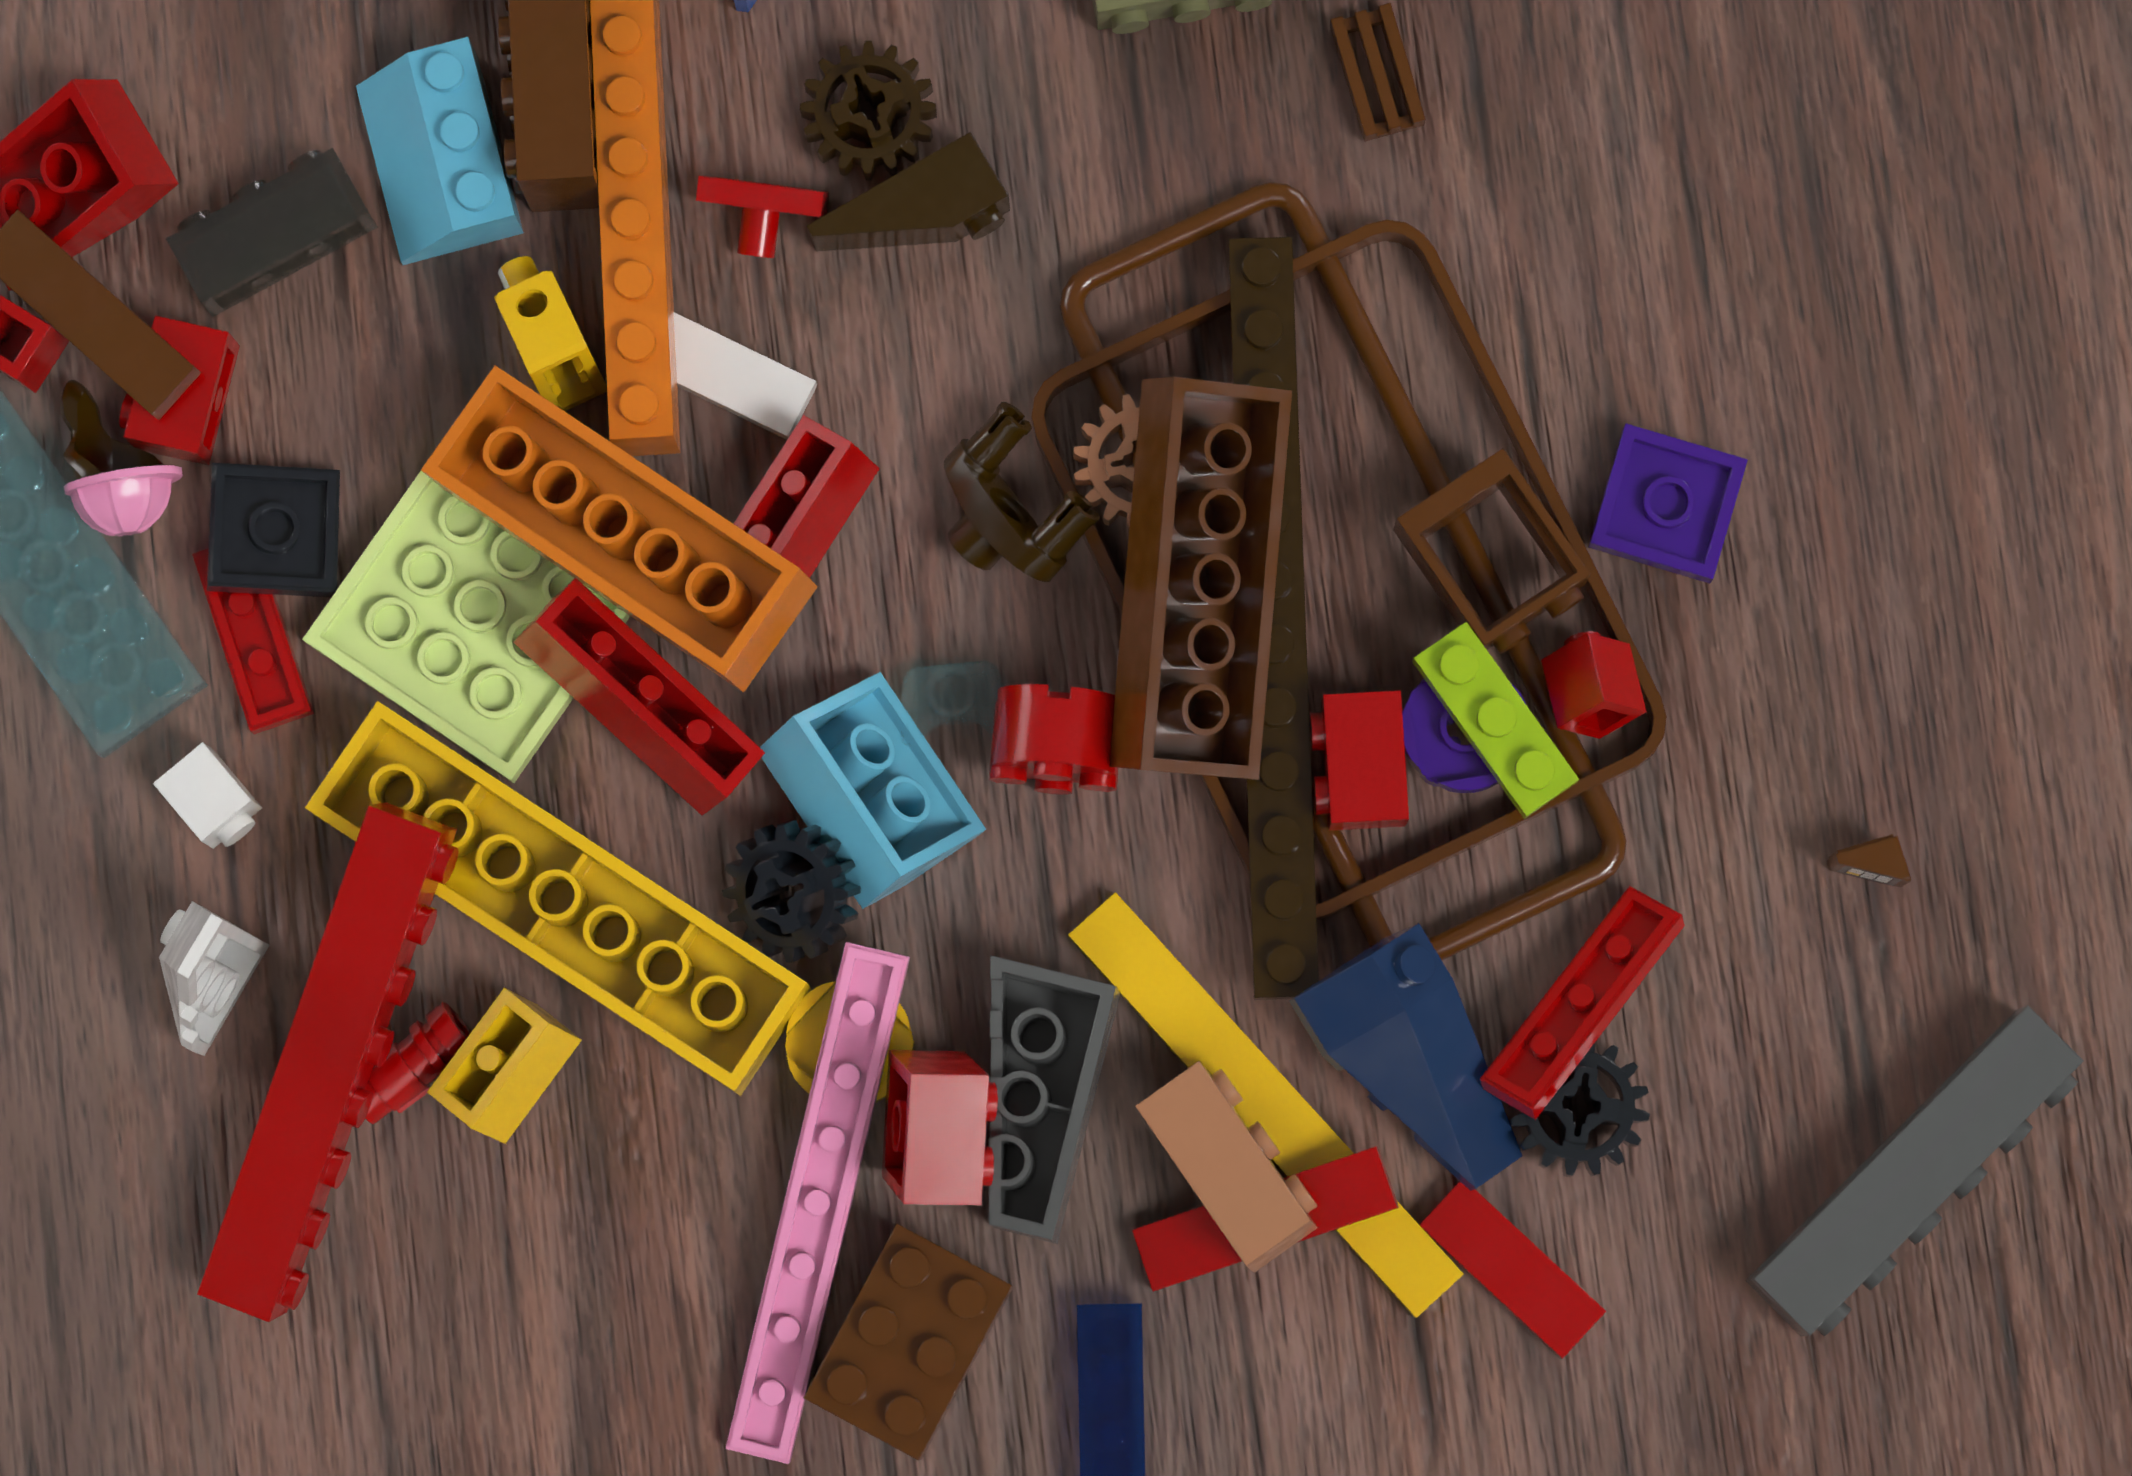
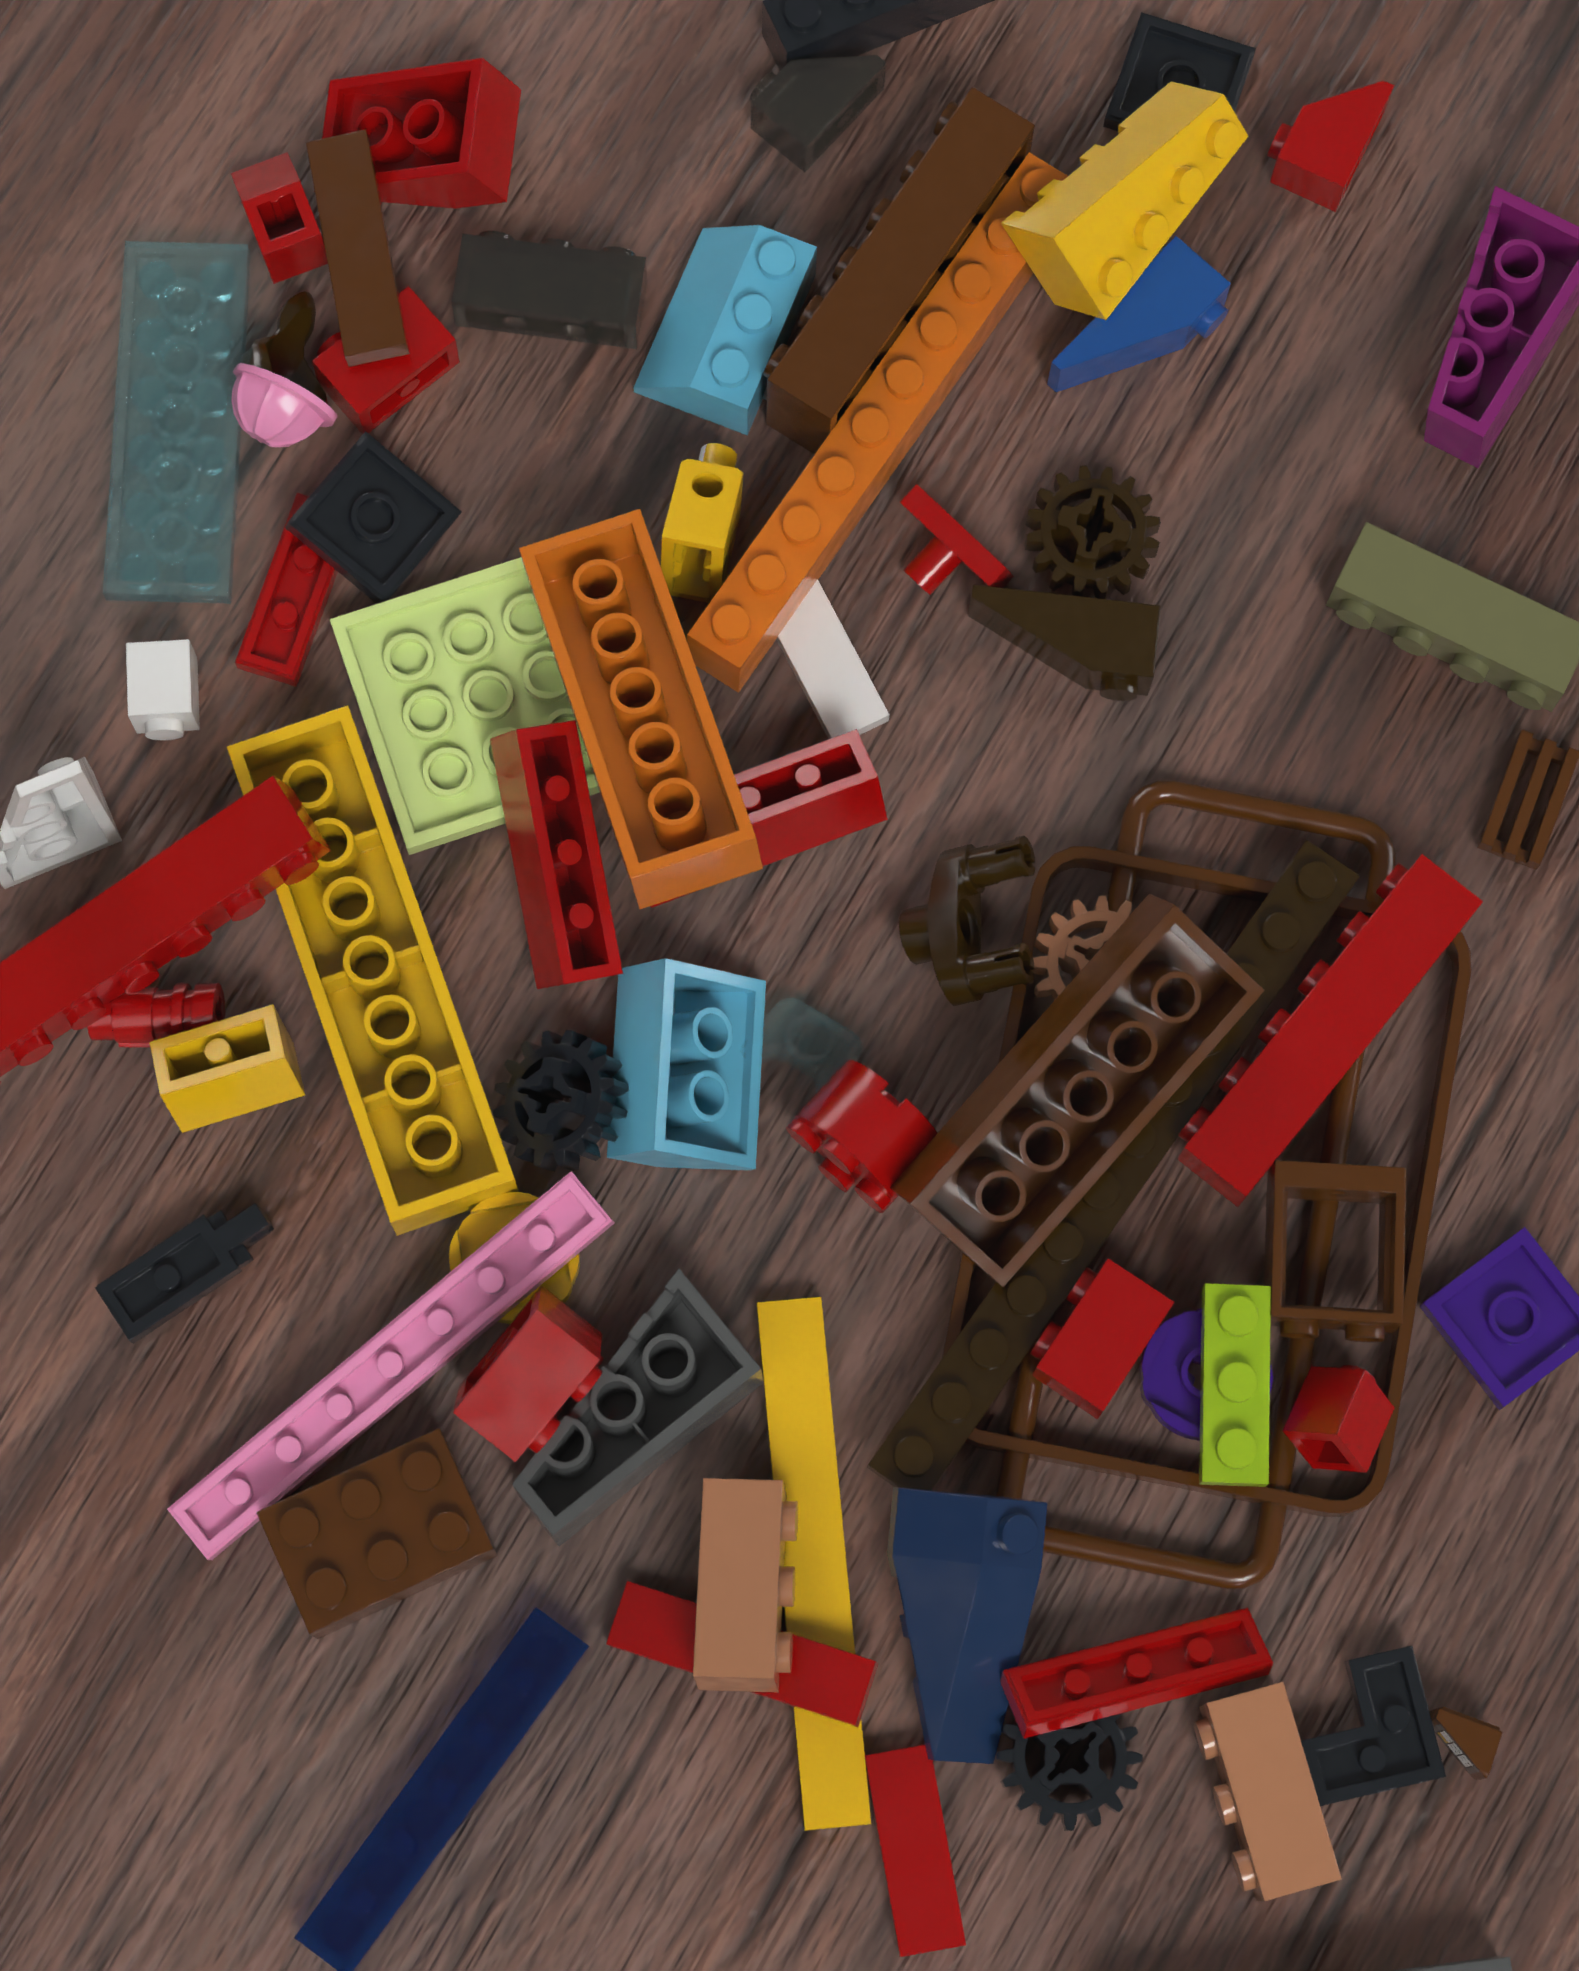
camera: 30 degrees right, 5 degrees down
(591, 1253) = (182, 1270): none -> black hinge
(1359, 380) = (1328, 1029): none -> red brick
(1750, 1019) = (1266, 1793): none -> nougat brick
(1817, 905) = (1395, 1735): none -> black plate

